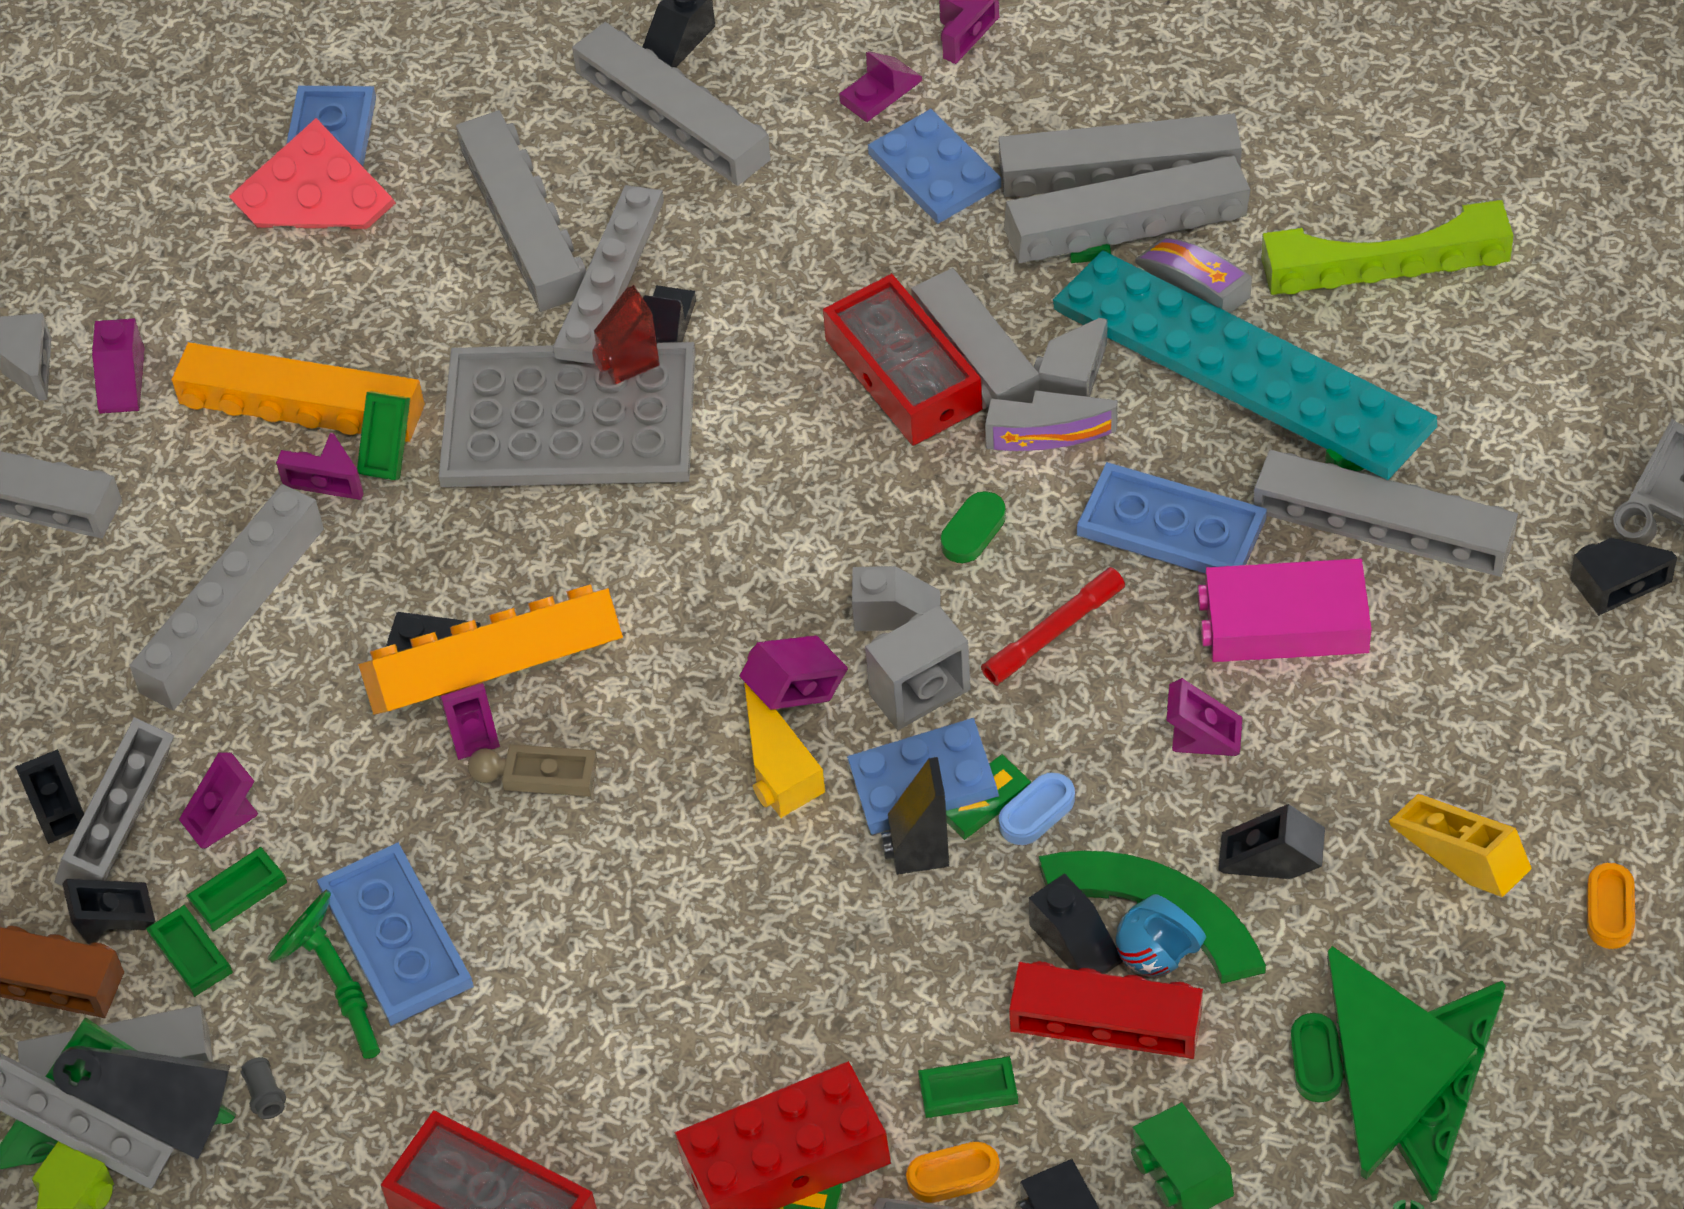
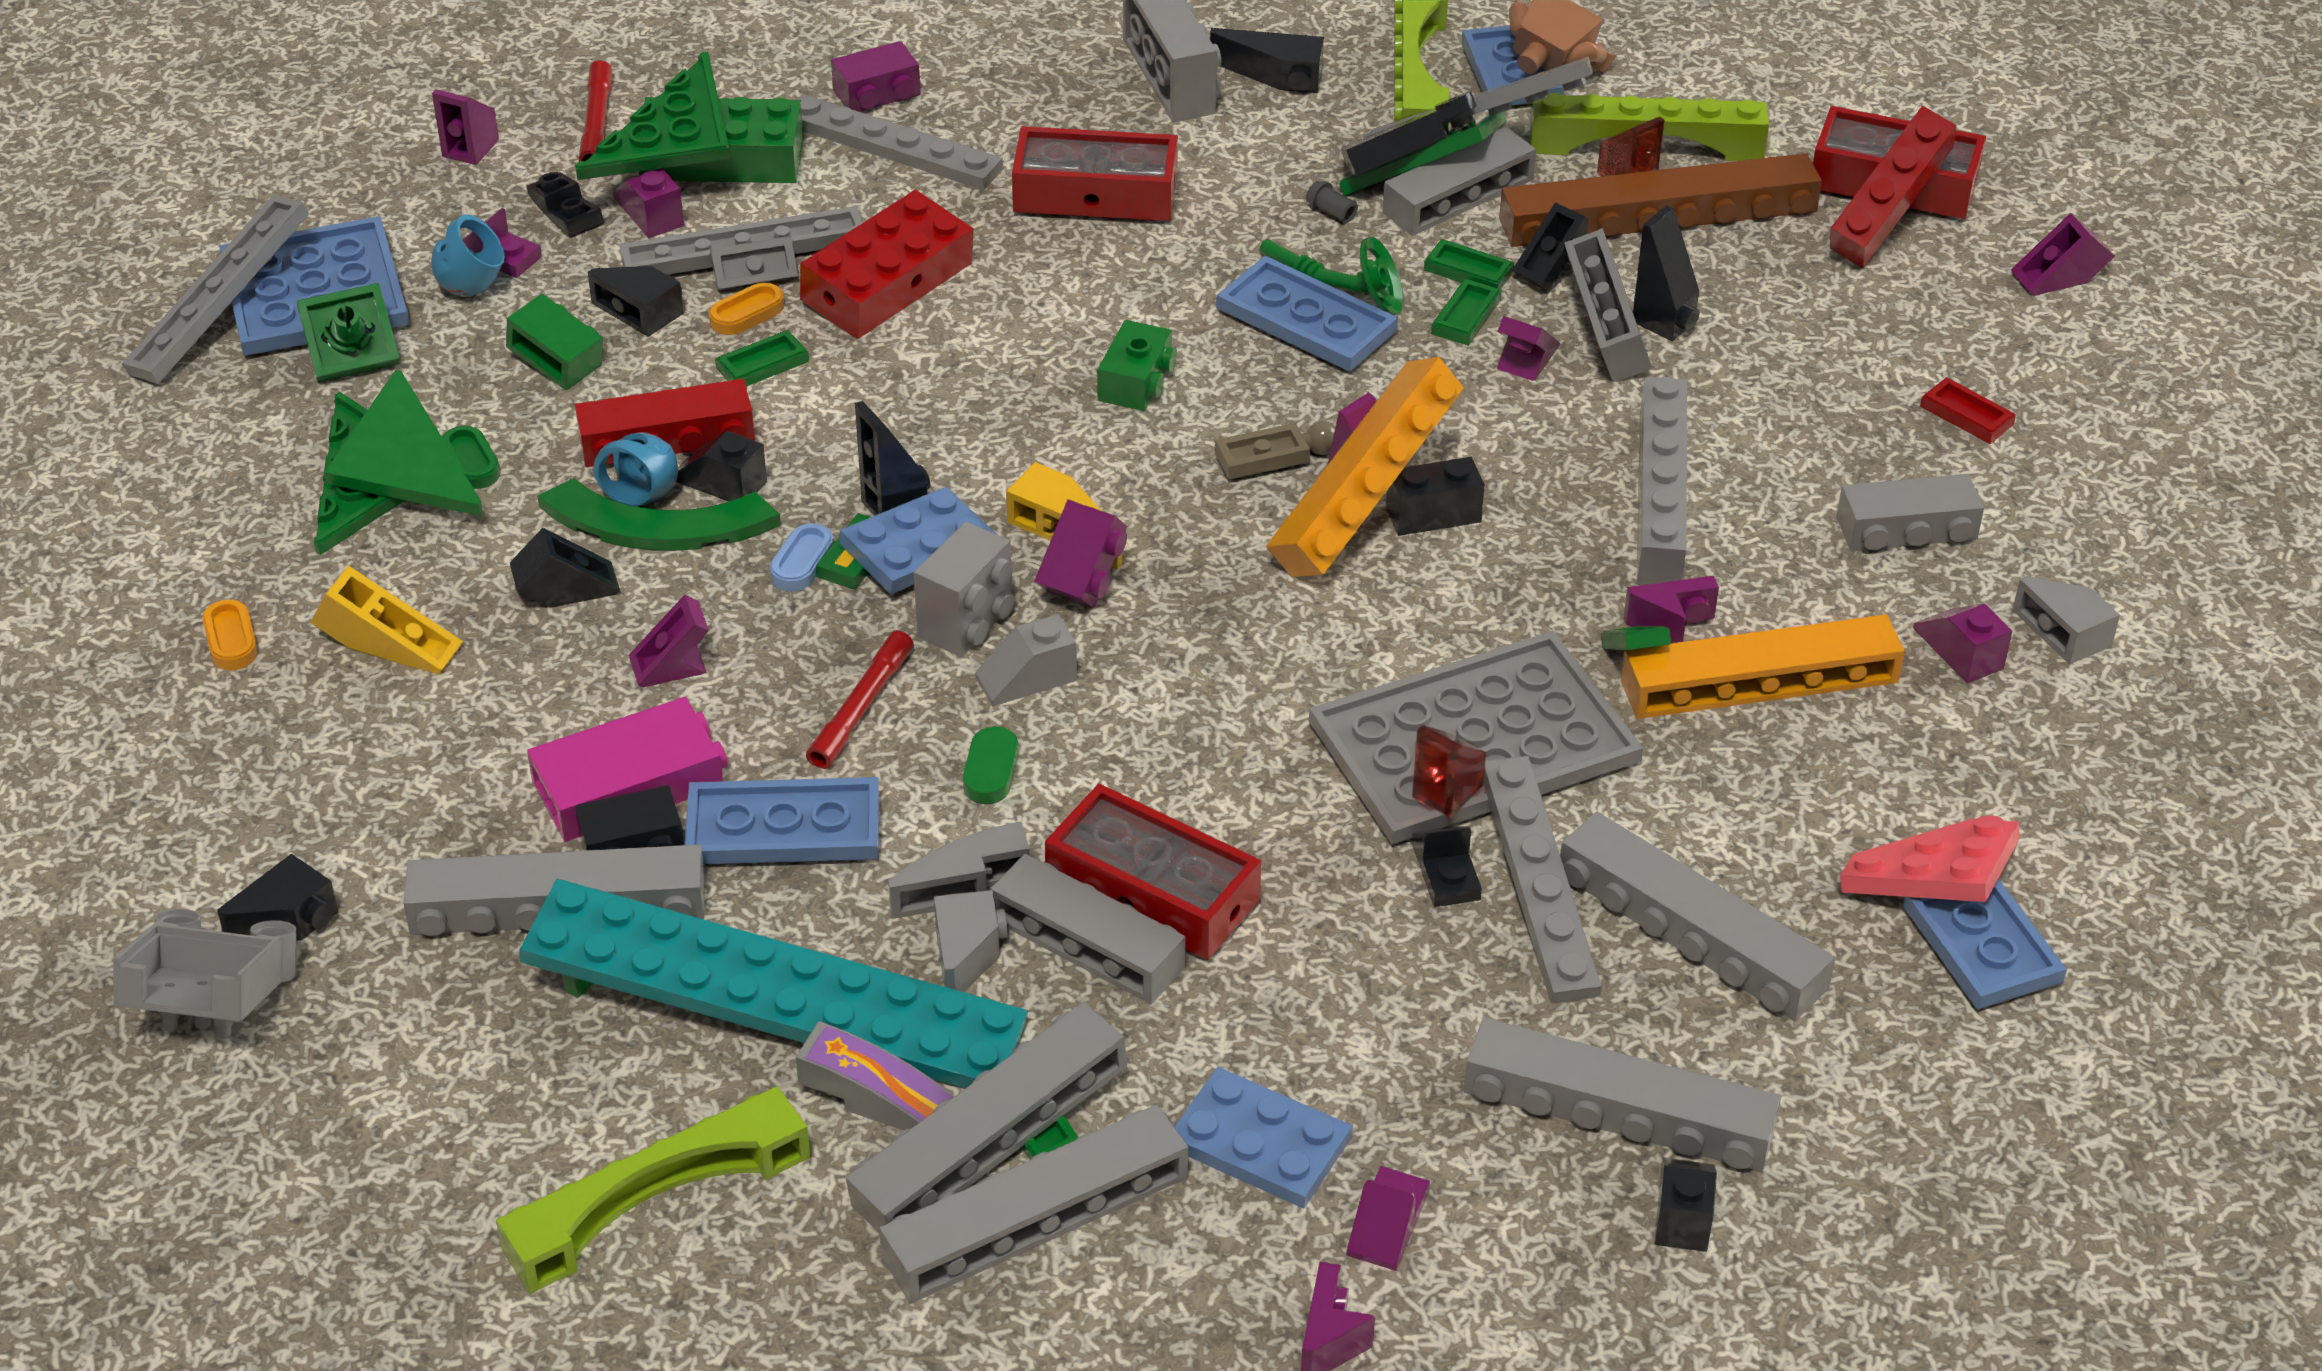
camera: 150 degrees right, 10 degrees down
(605, 916) = (1135, 365): none -> green brick
(1303, 538) = (630, 821): none -> black brick

